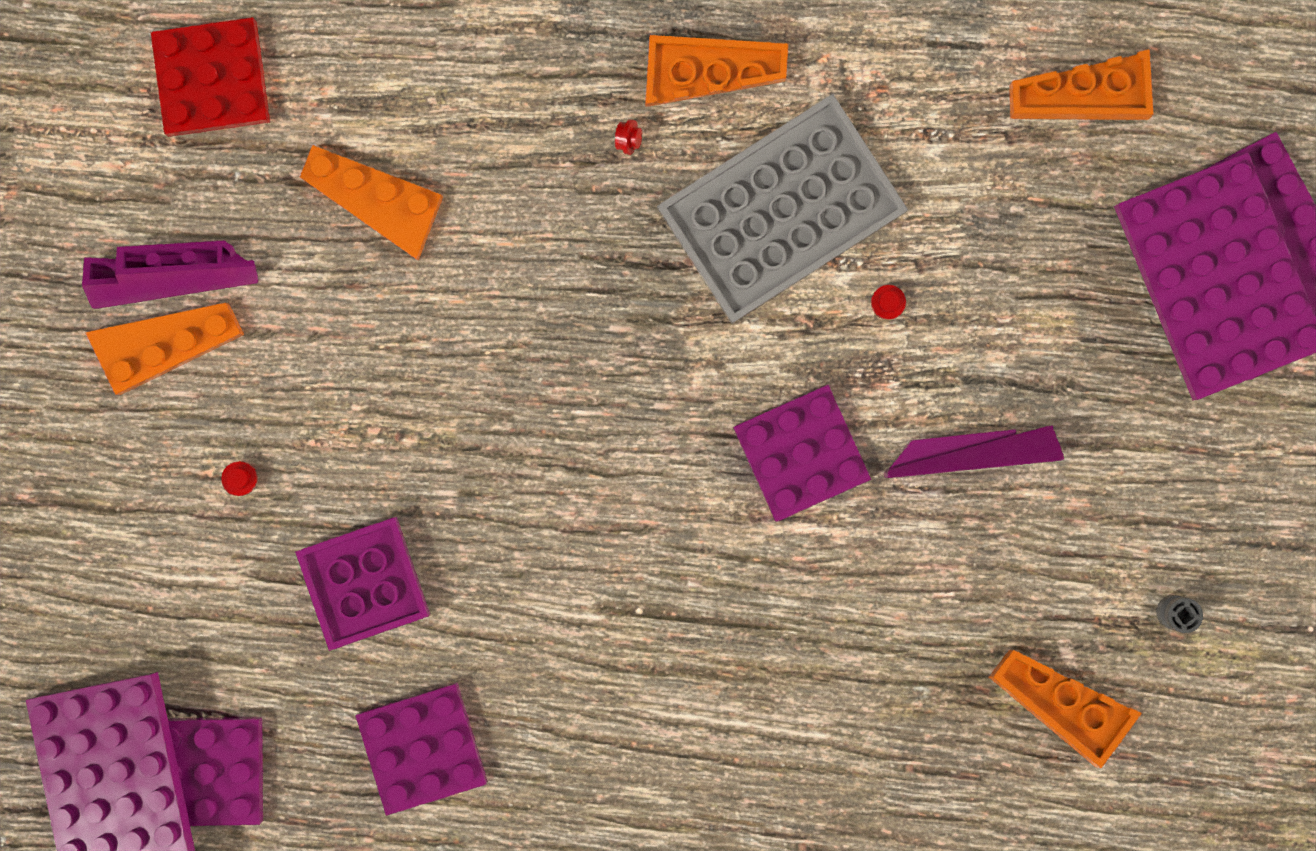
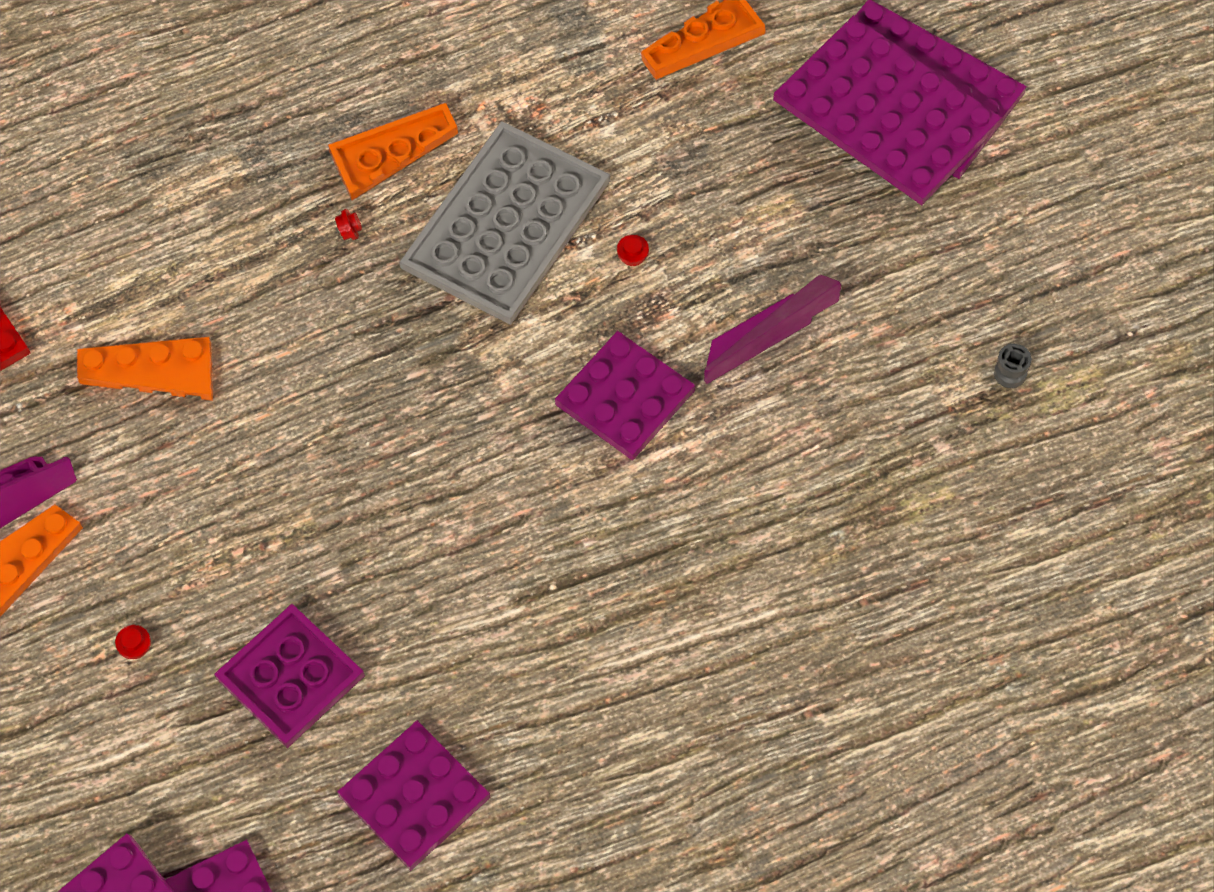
camera: 30 degrees left, 25 degrees down
(1074, 712) = (976, 485): orange wing -> none

